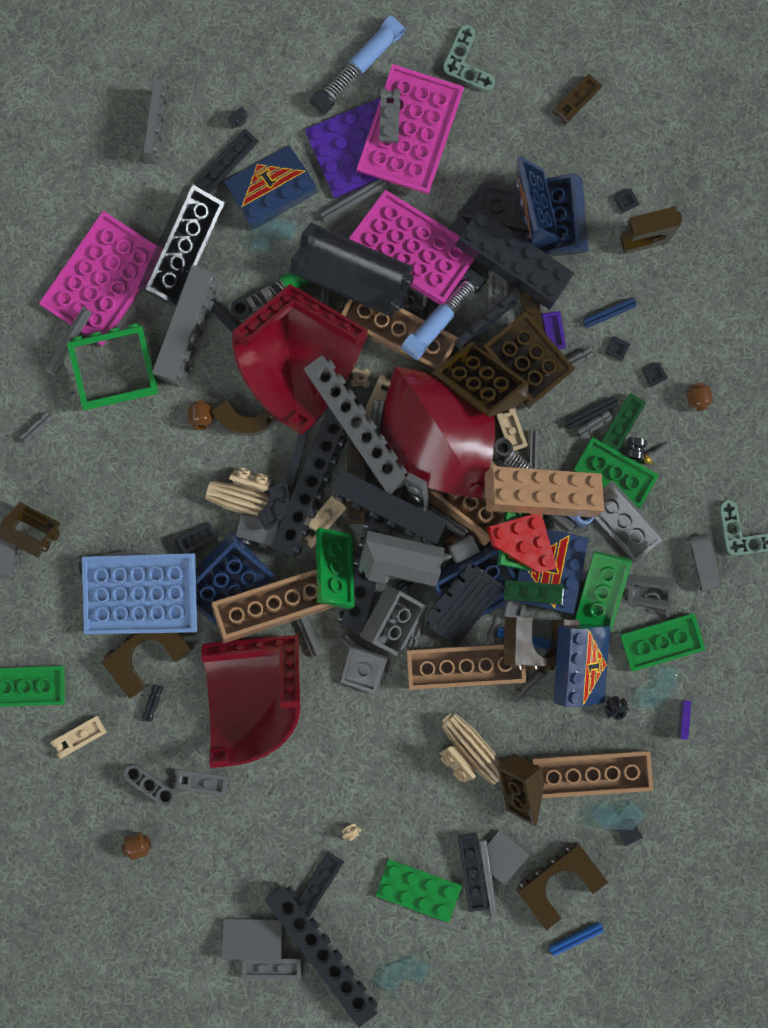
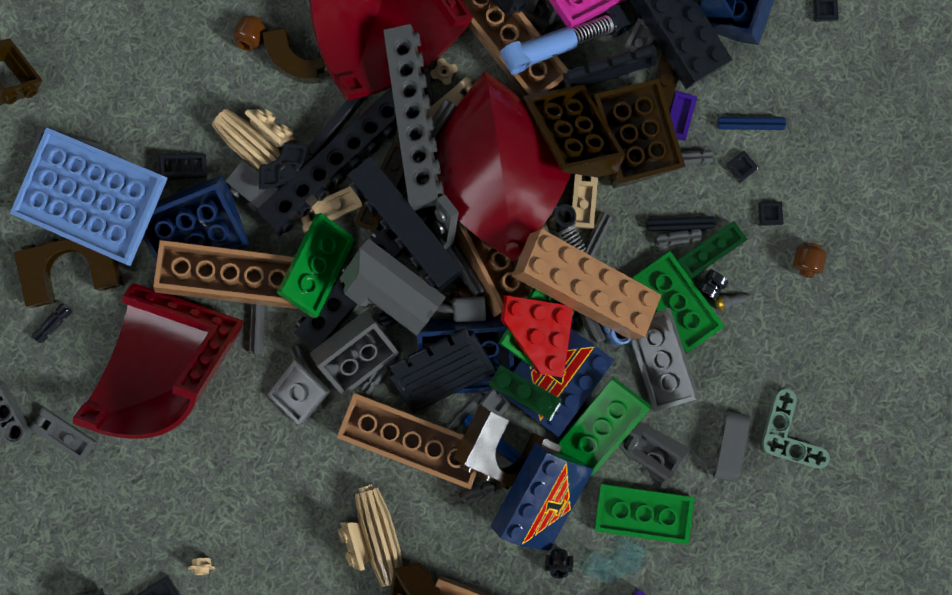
camera: 20 degrees right, 0 degrees up
(650, 229) = (840, 47): dark brown arch -> none

